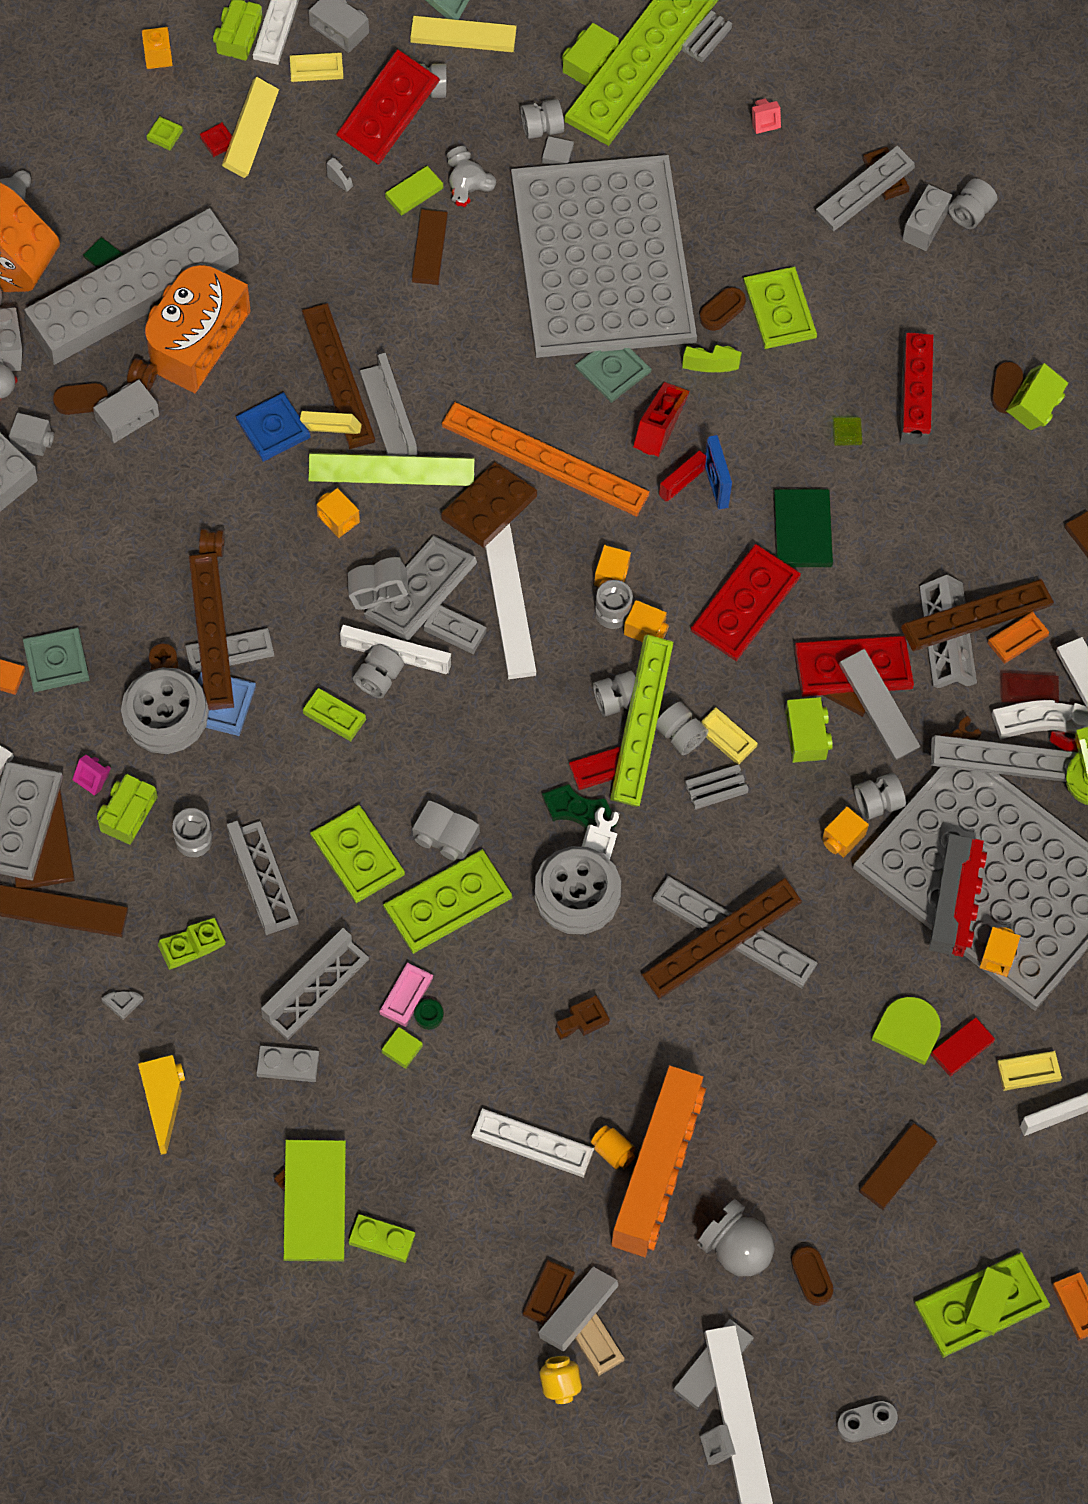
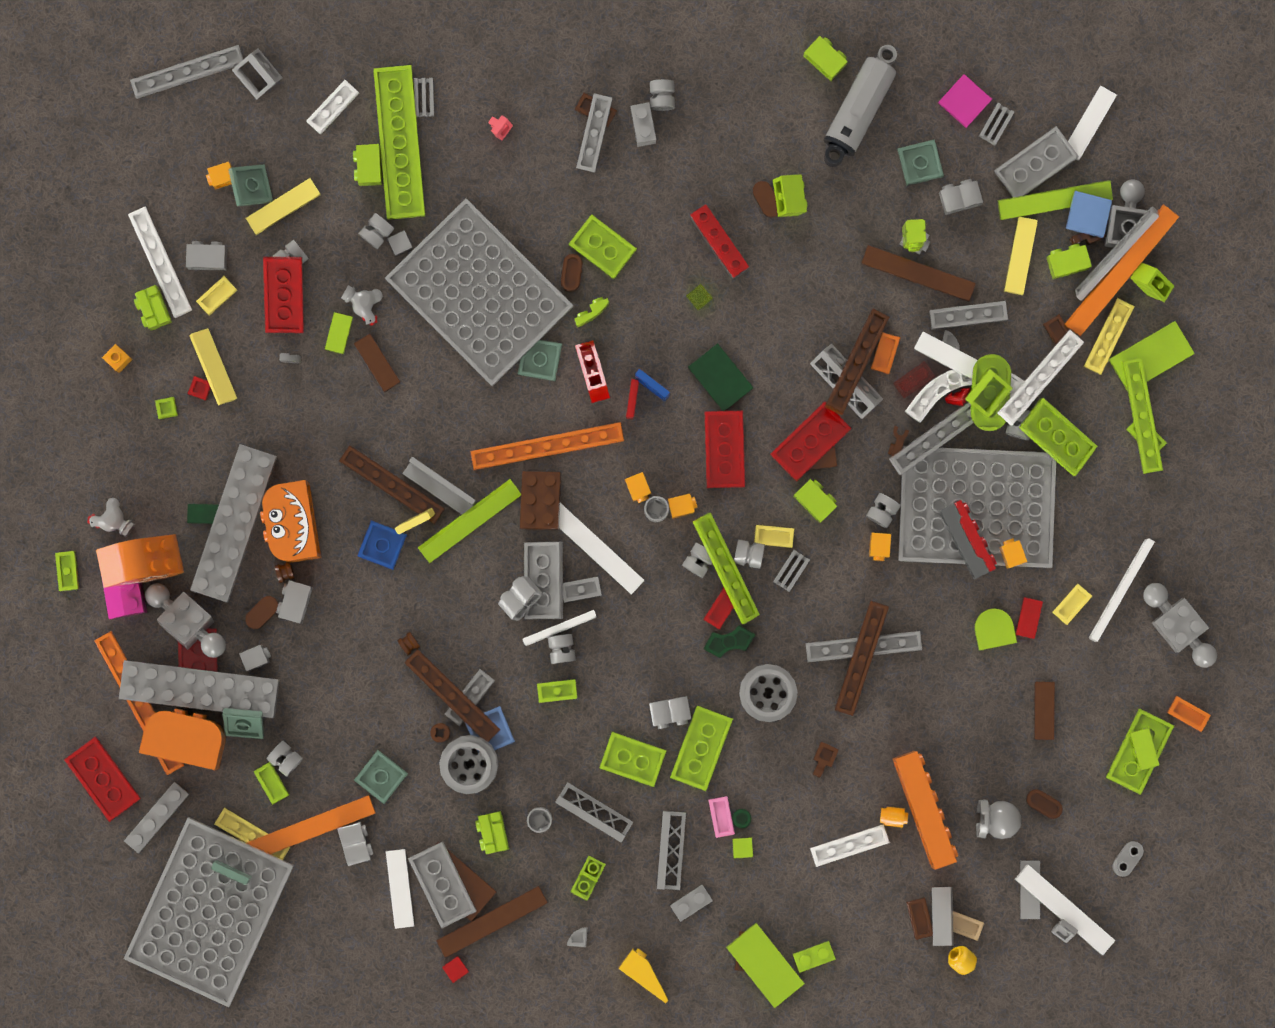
camera: 35 degrees left, 20 degrees up
(91, 774) = (457, 828): dark pink tile -> none
(337, 512) = (461, 571): light orange brick -> none
(600, 836) = (755, 651): white plate -> none
(879, 705) = (843, 456): light grey tile -> none

